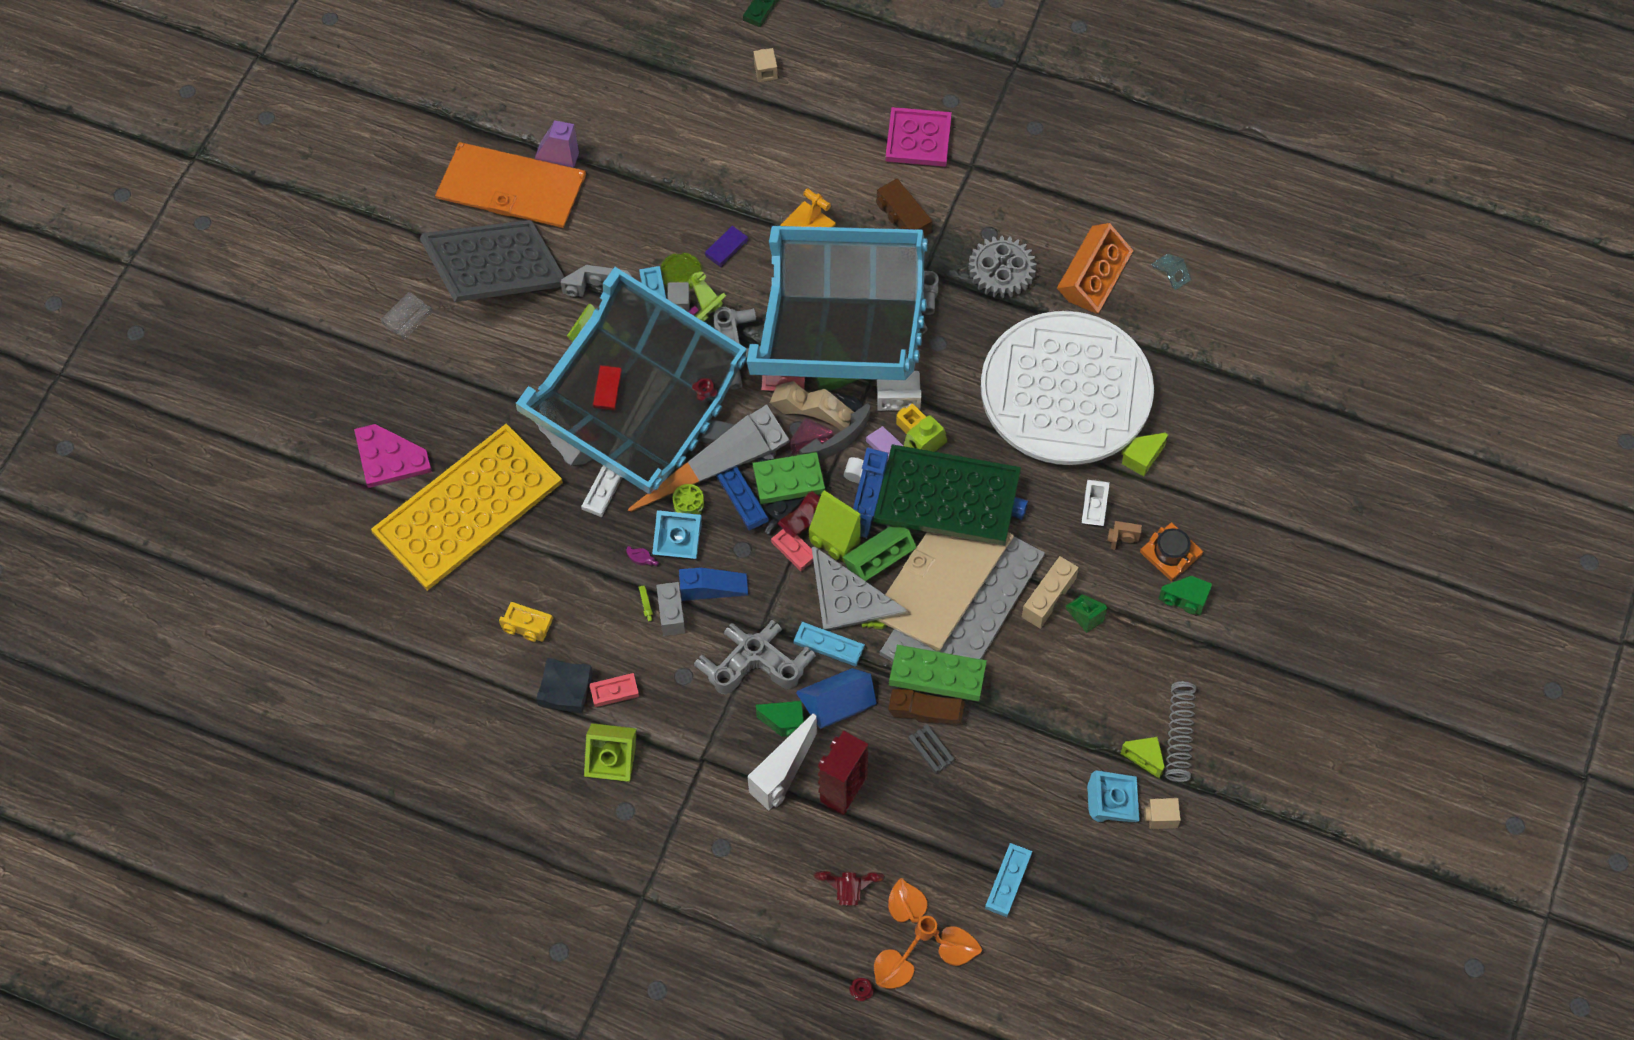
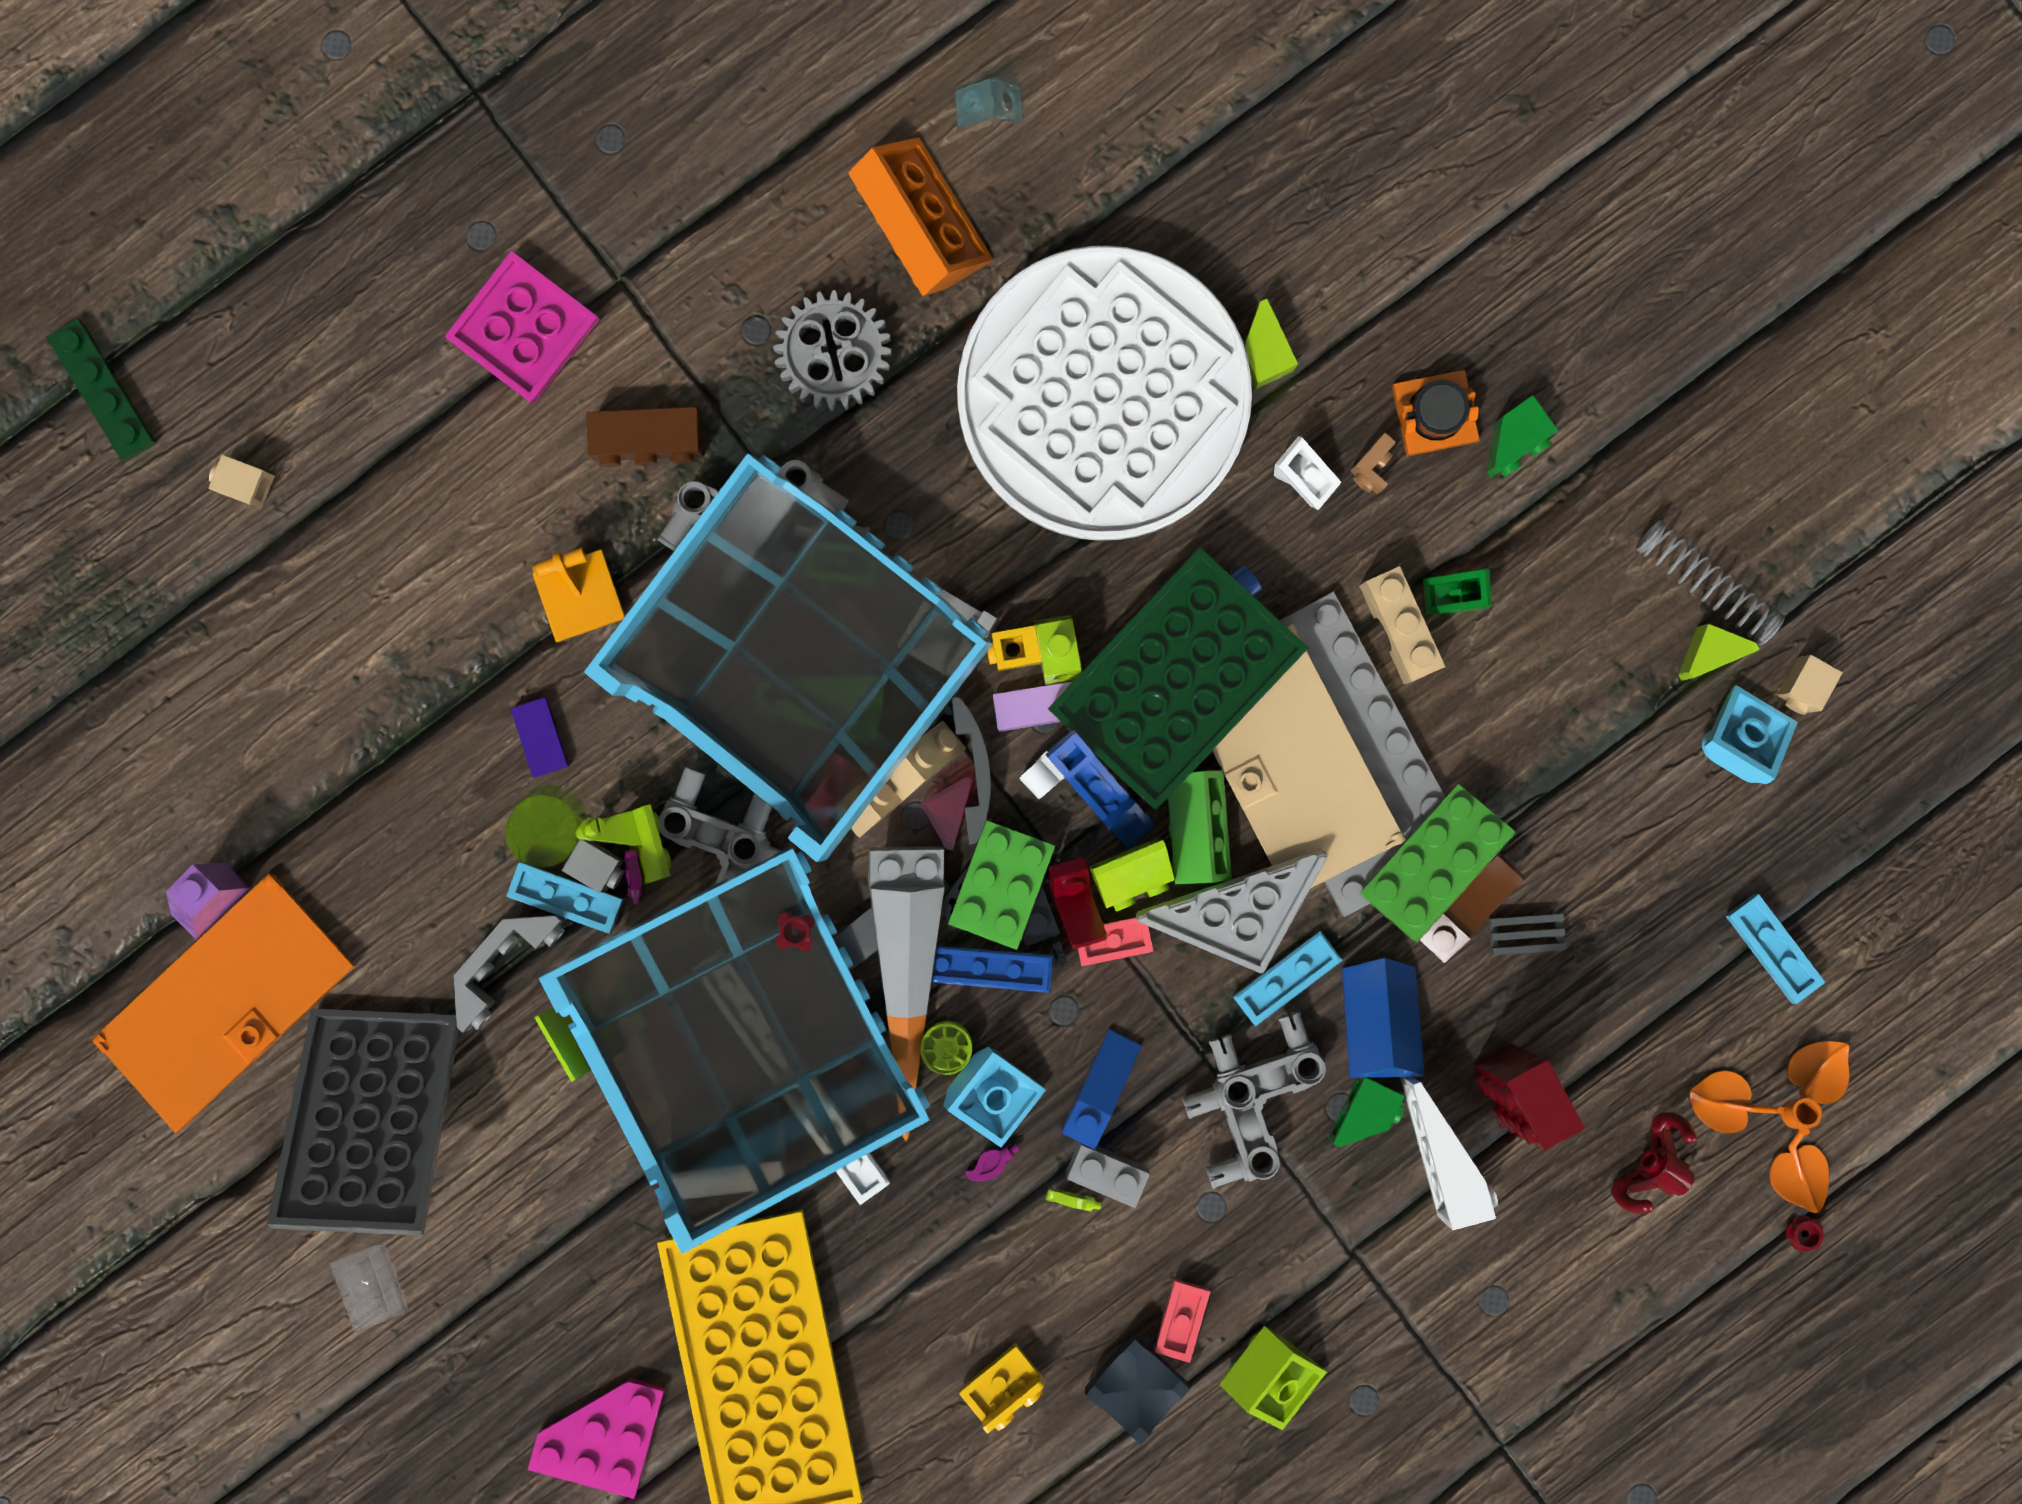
camera: 65 degrees left, 25 degrees up
(607, 387) = (704, 1073): red tile -> none

